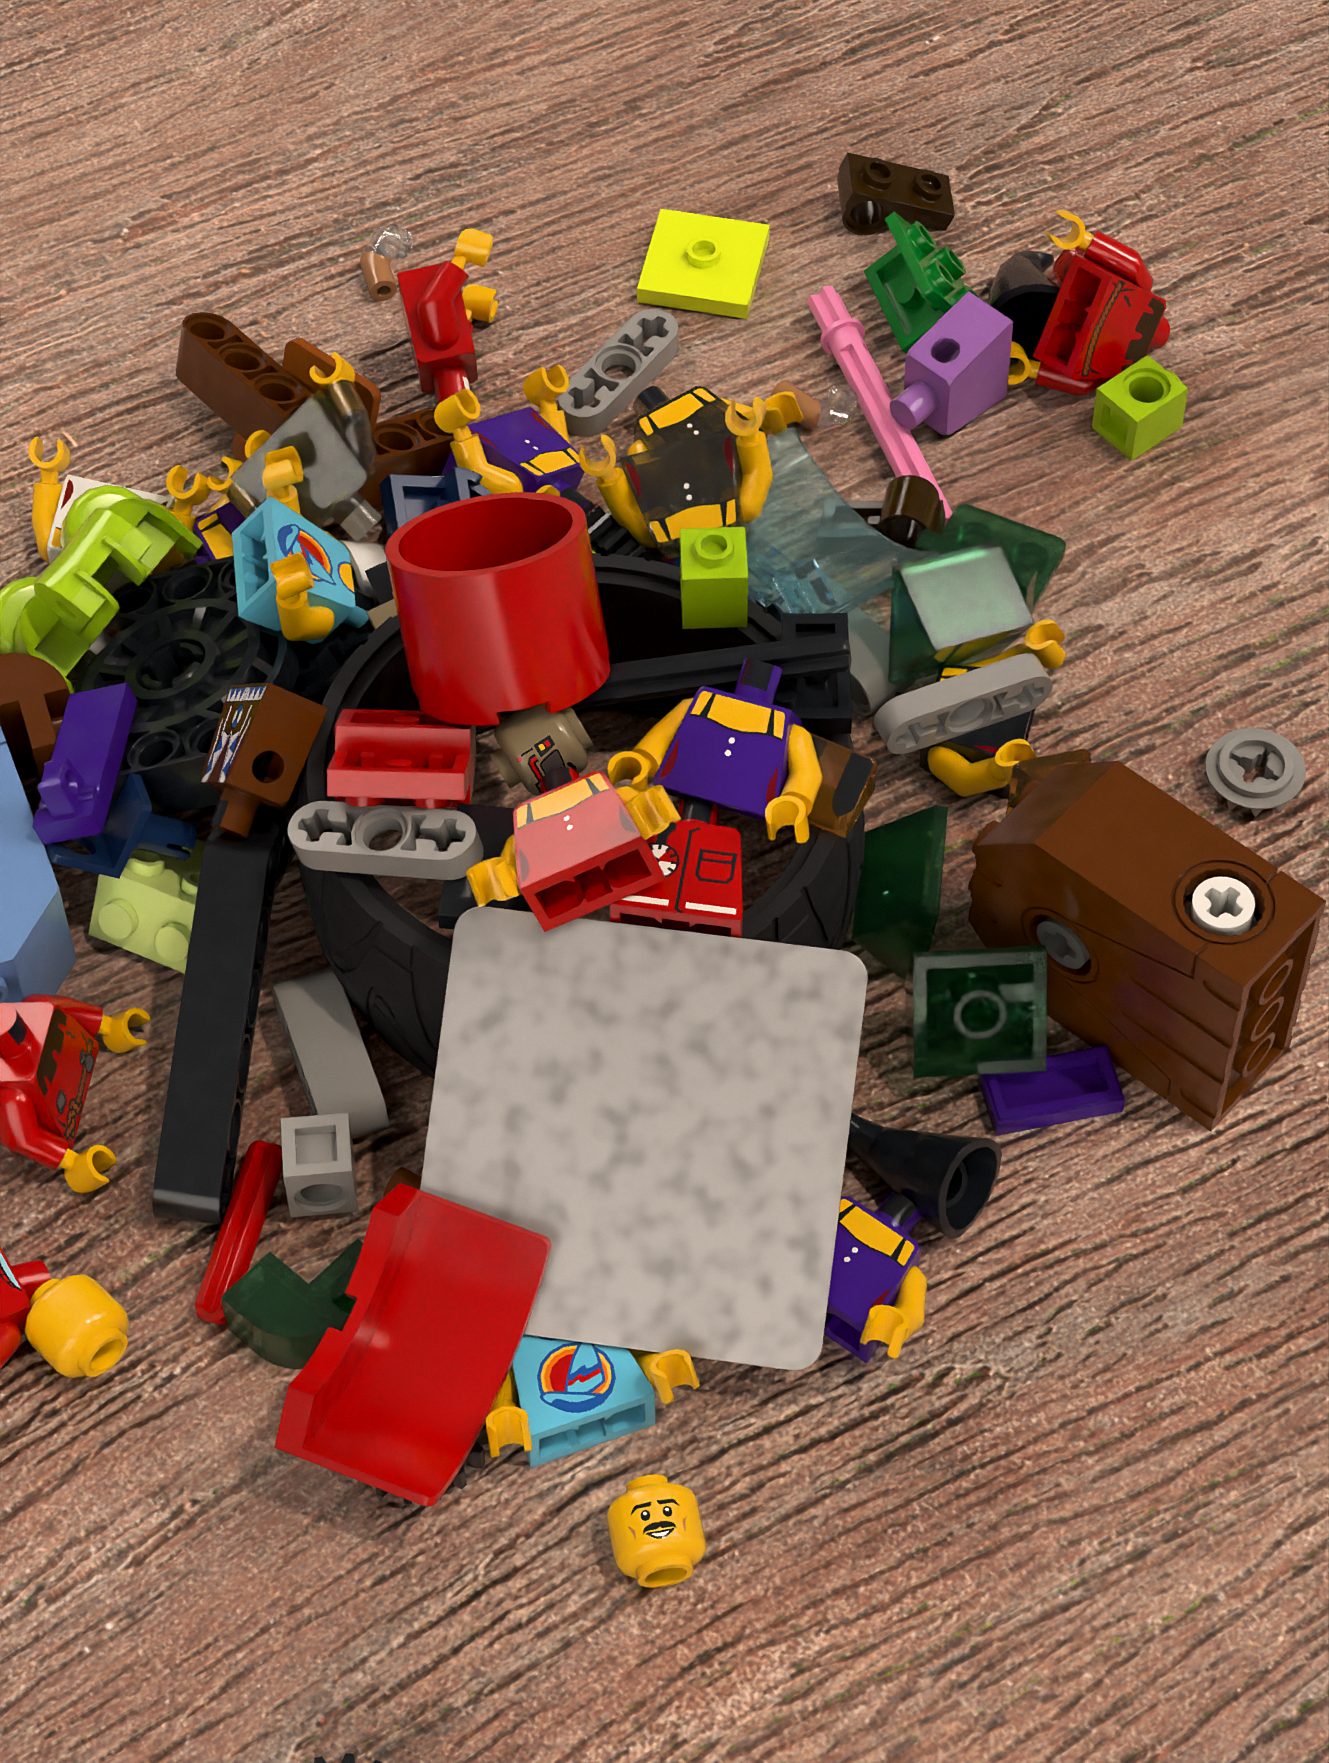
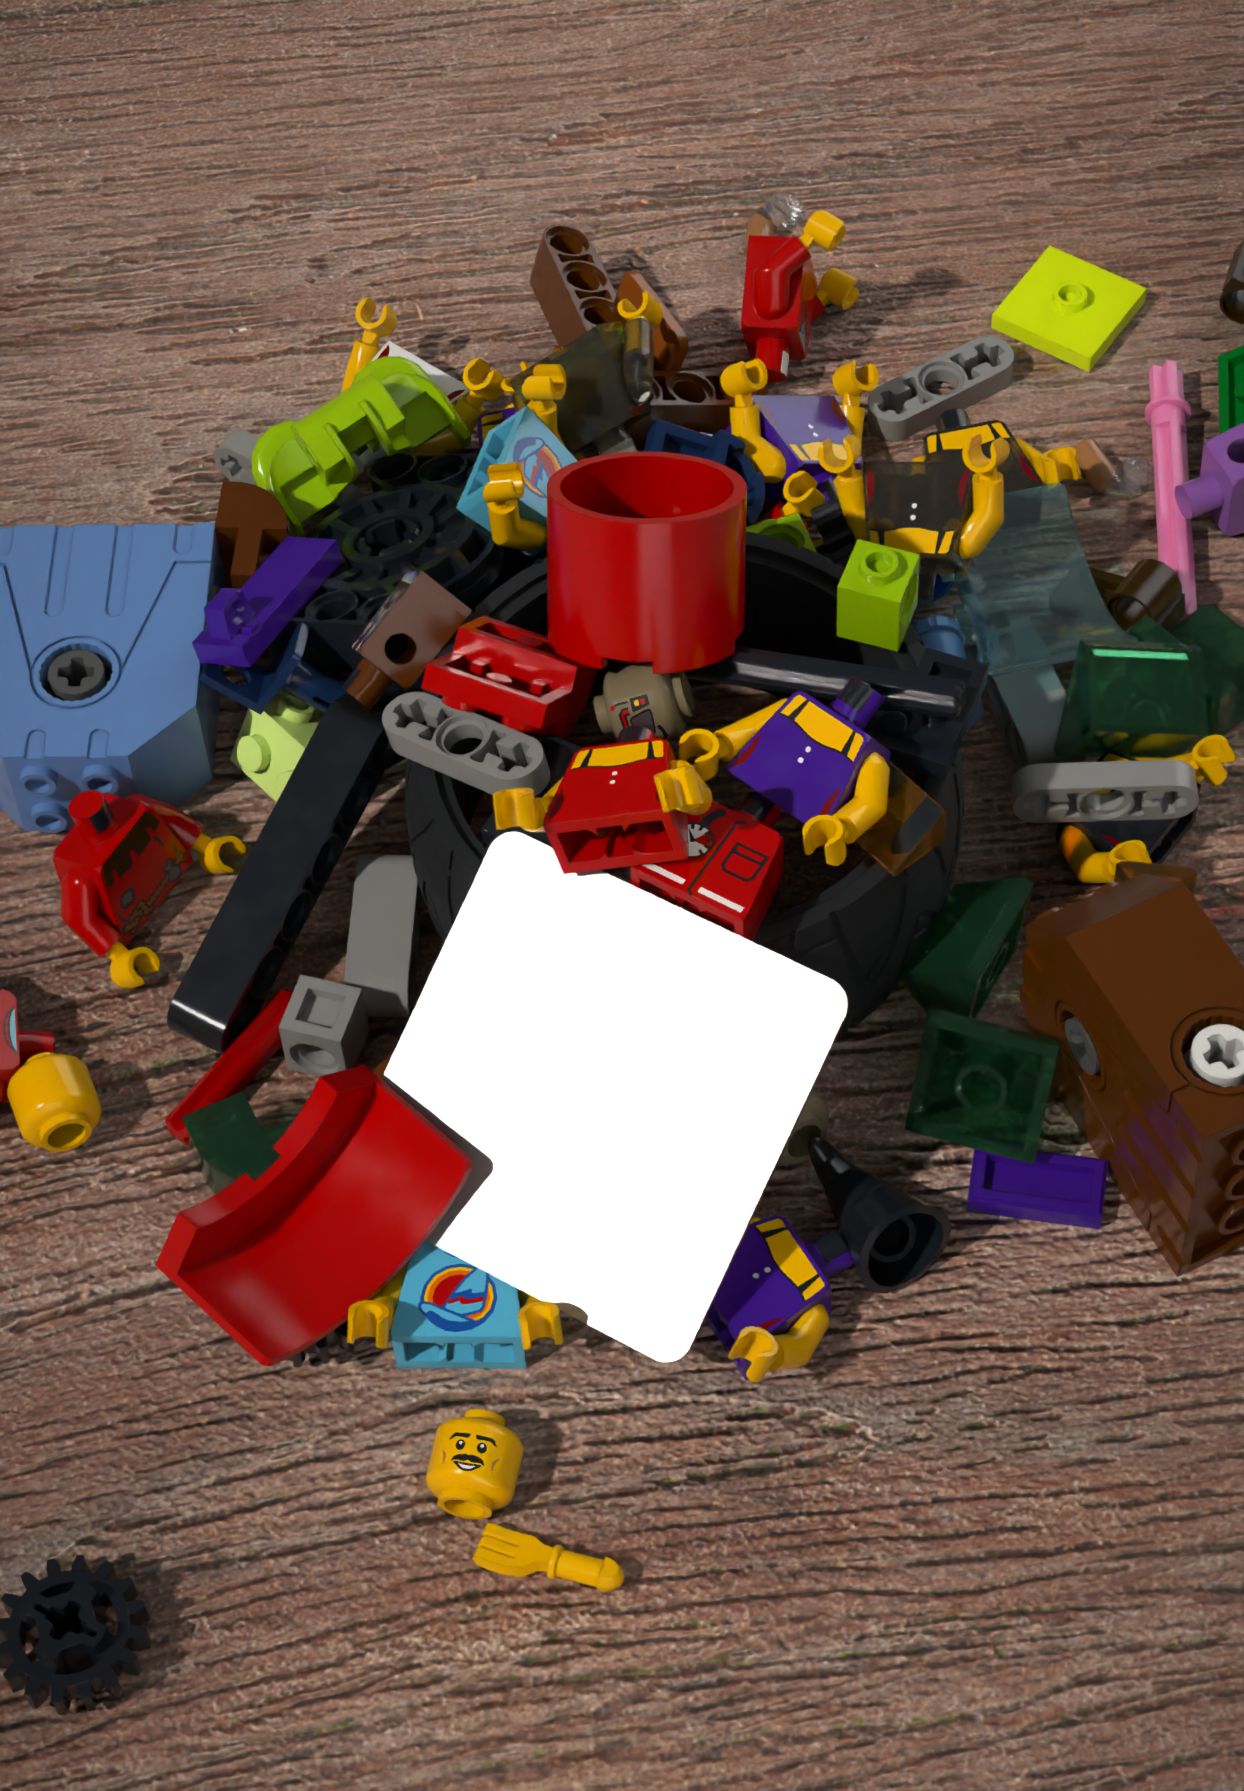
camera: 25 degrees right, 0 degrees up
(738, 1599) = (523, 1554): none -> yellow piece

